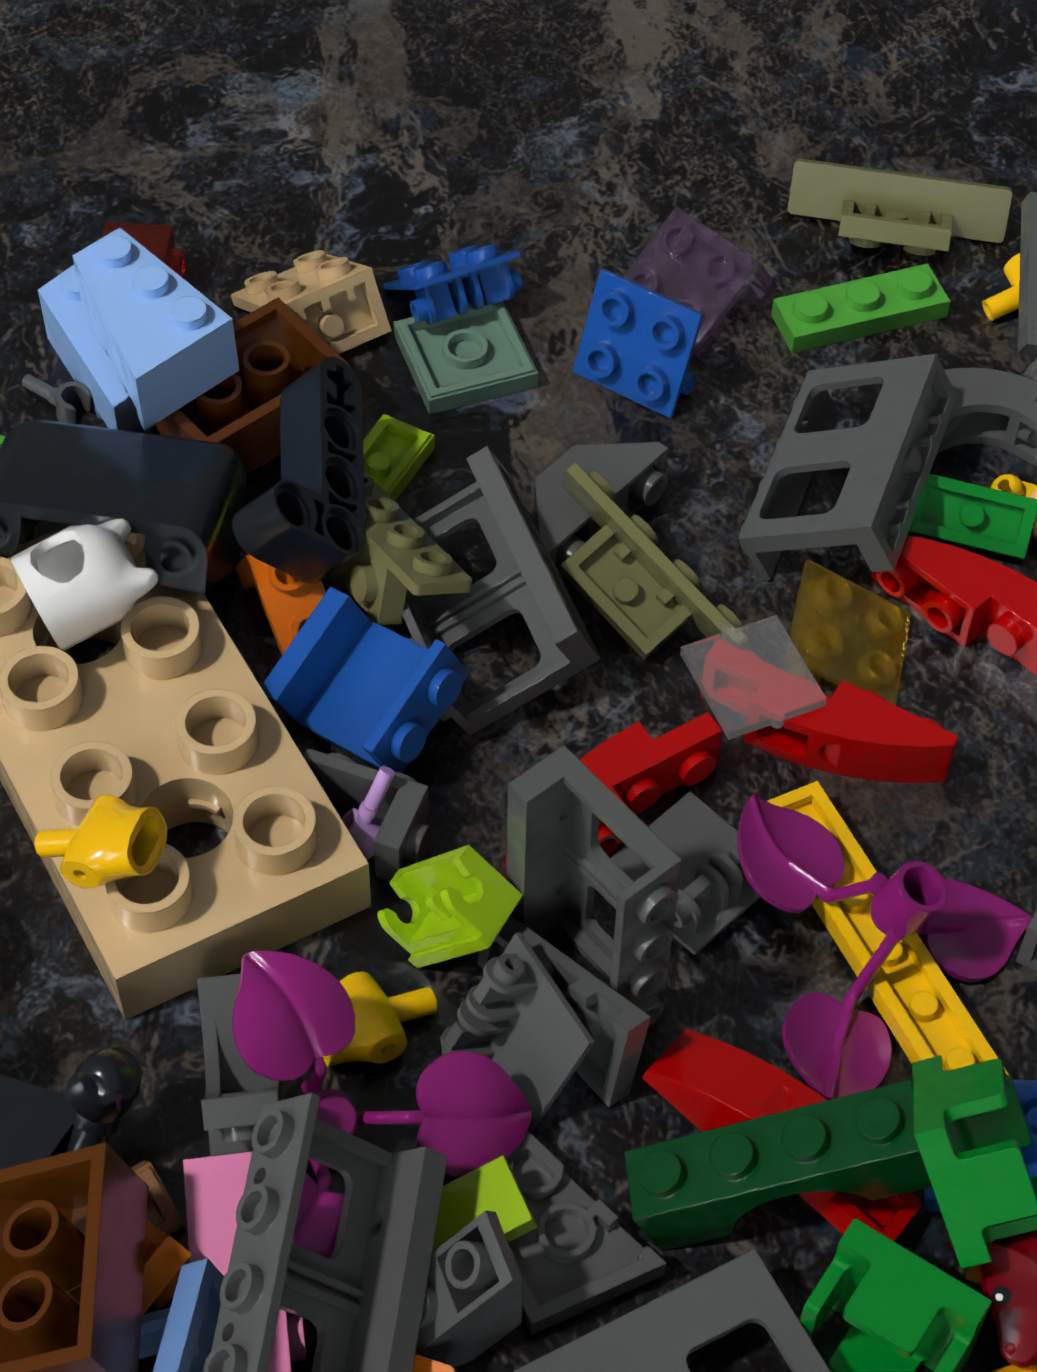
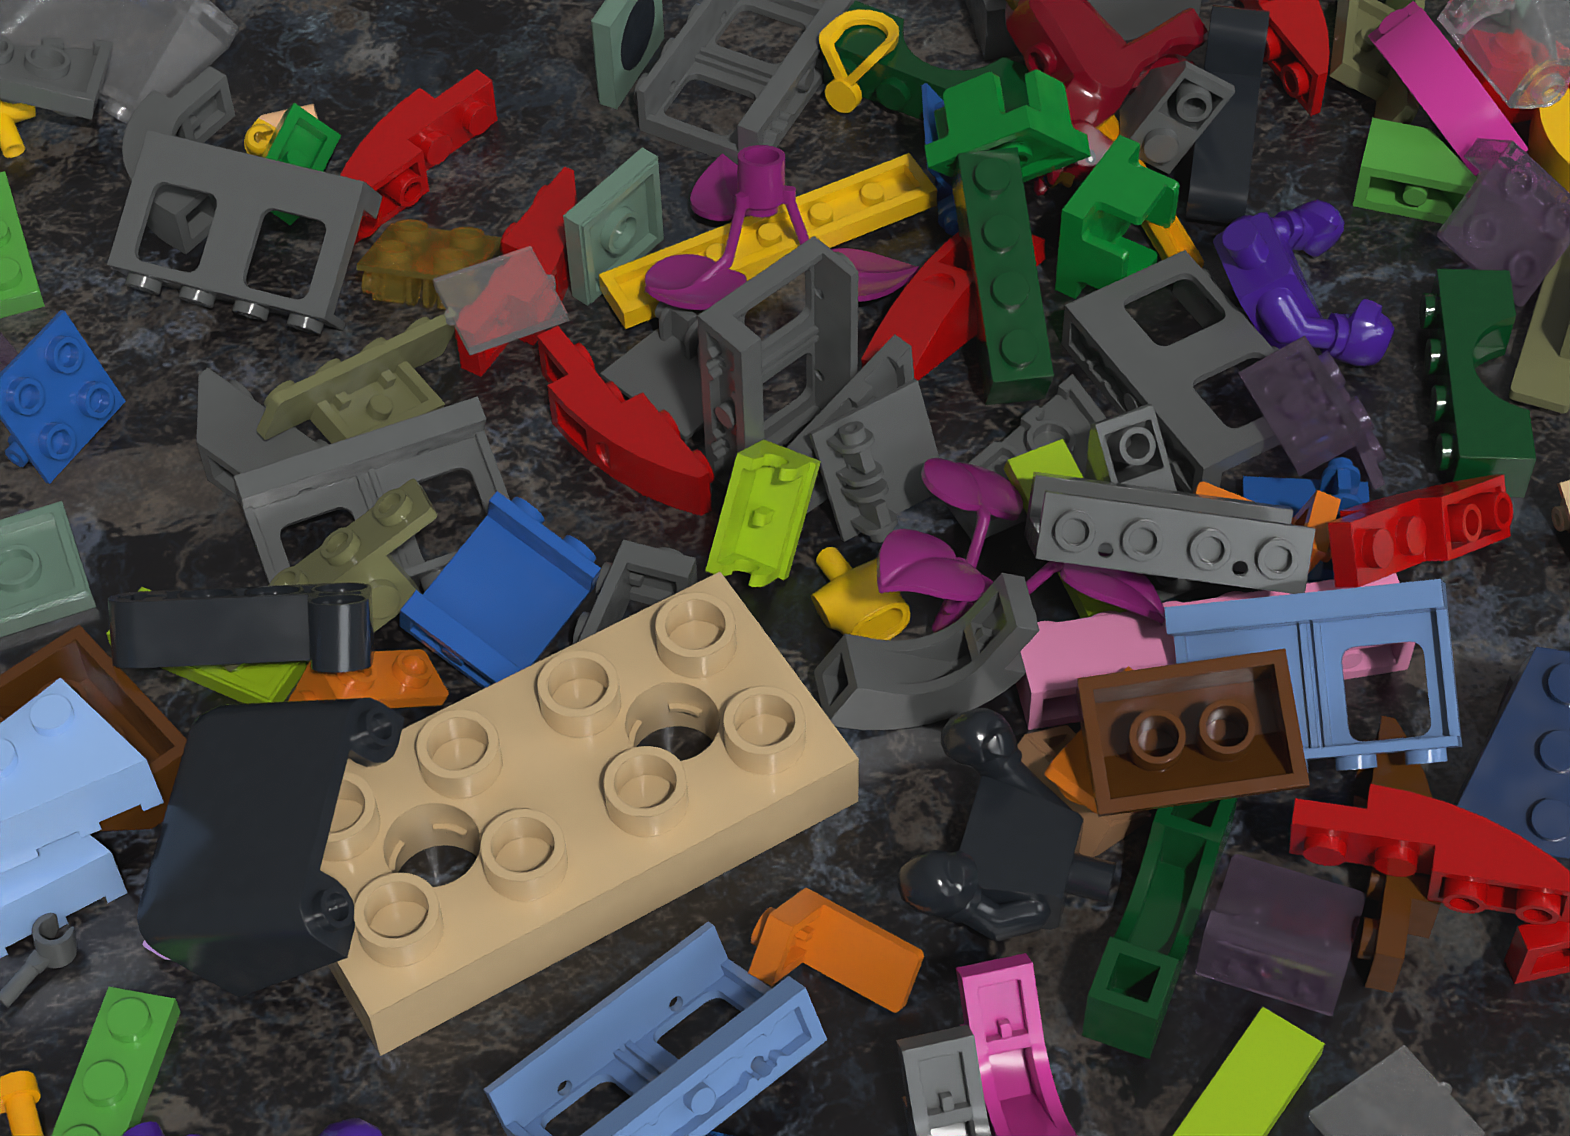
camera: 90 degrees left, 0 degrees up
(83, 579) = (417, 798): white piece -> none
(108, 843) = (741, 738): yellow piece -> none
(361, 821) = (640, 592): lavender hand -> none
(870, 781) = (614, 224): none -> sand green tile

